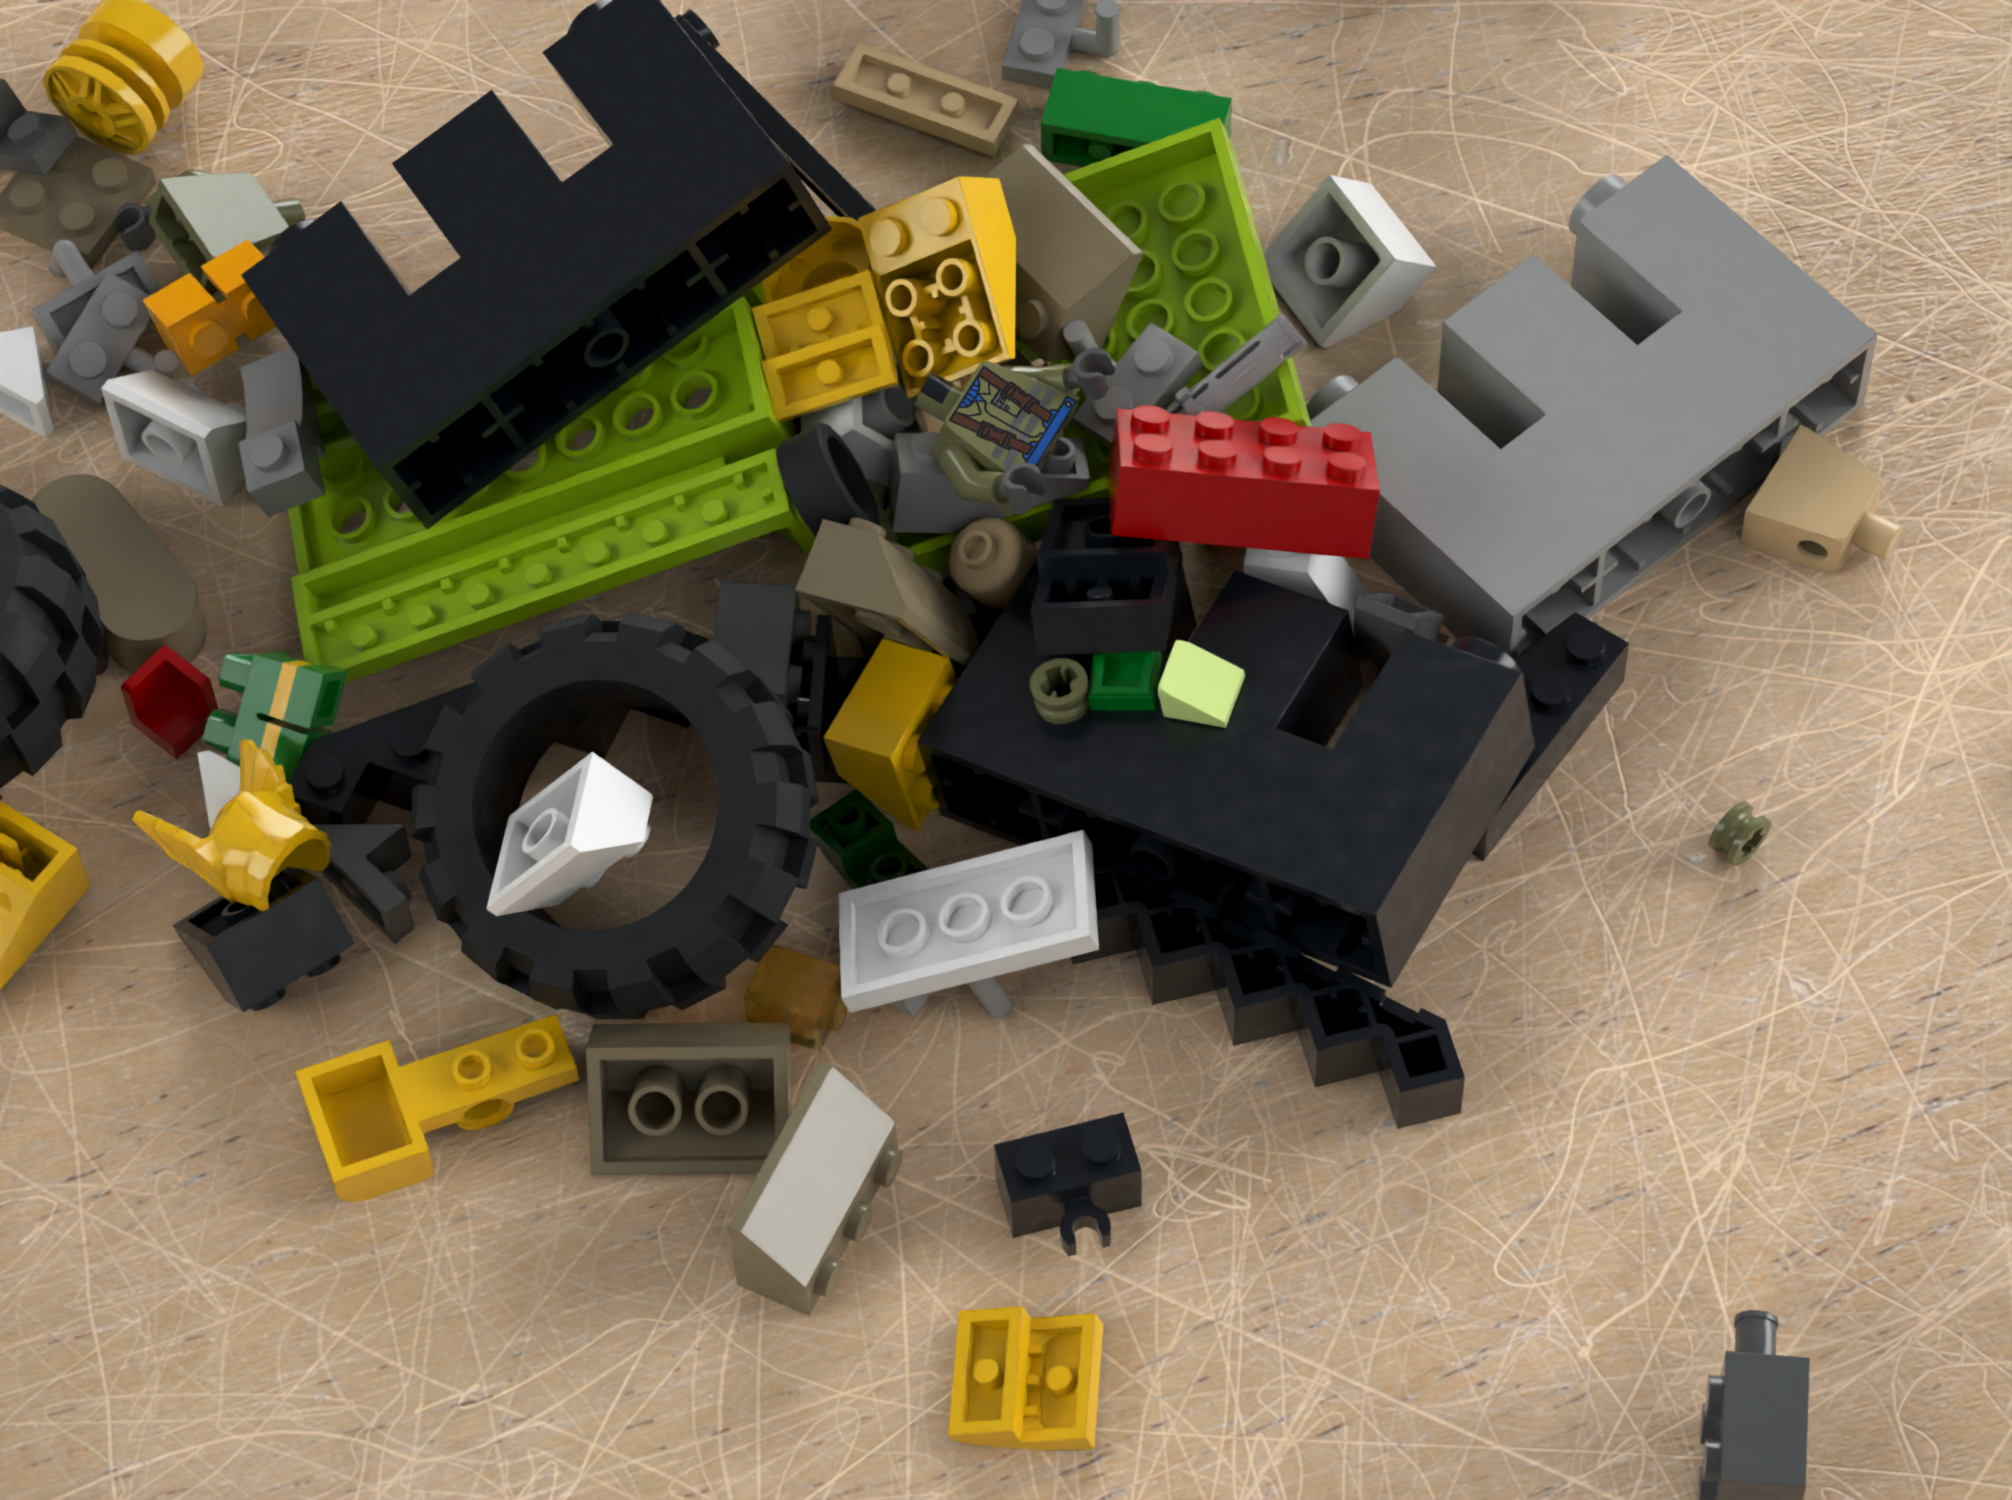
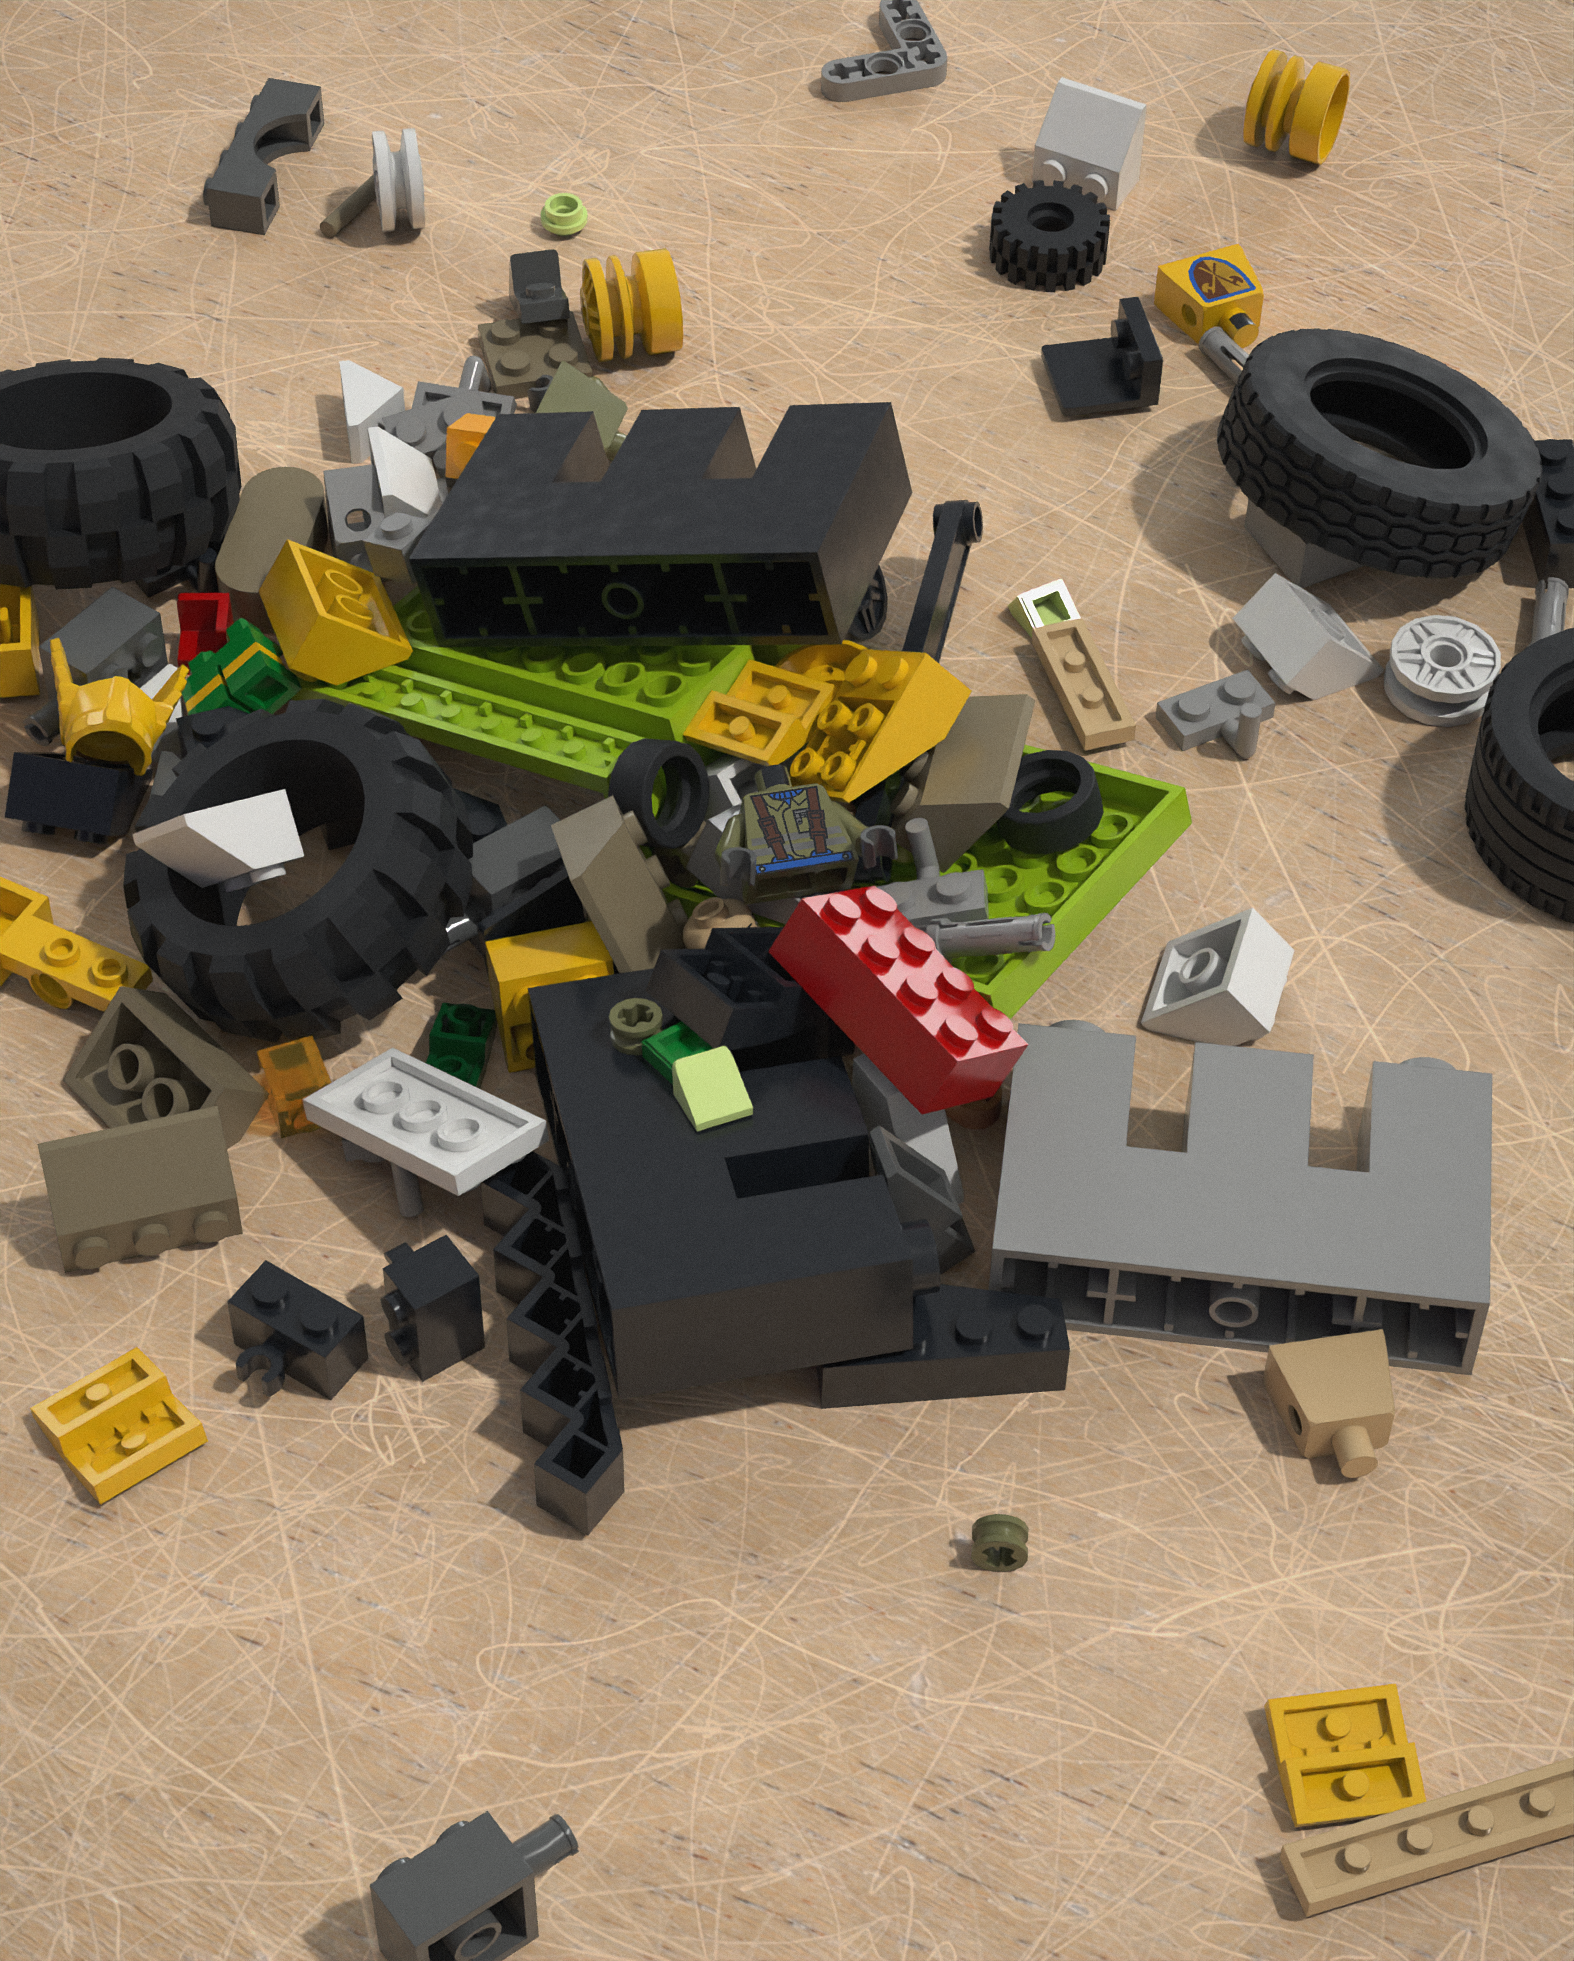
camera: 45 degrees right, 10 degrees down
(152, 772) = (101, 642): none -> dark grey brick
(181, 491) = (347, 492): none -> light grey torso
(293, 586) = (331, 616): none -> yellow slope
(807, 61) = (1043, 606): none -> yellowish green slope
(1105, 116) = (1223, 828): green brick -> none
(1126, 179) = (1064, 825): none -> black tyre
(1151, 1055) = (432, 1307): none -> black brick

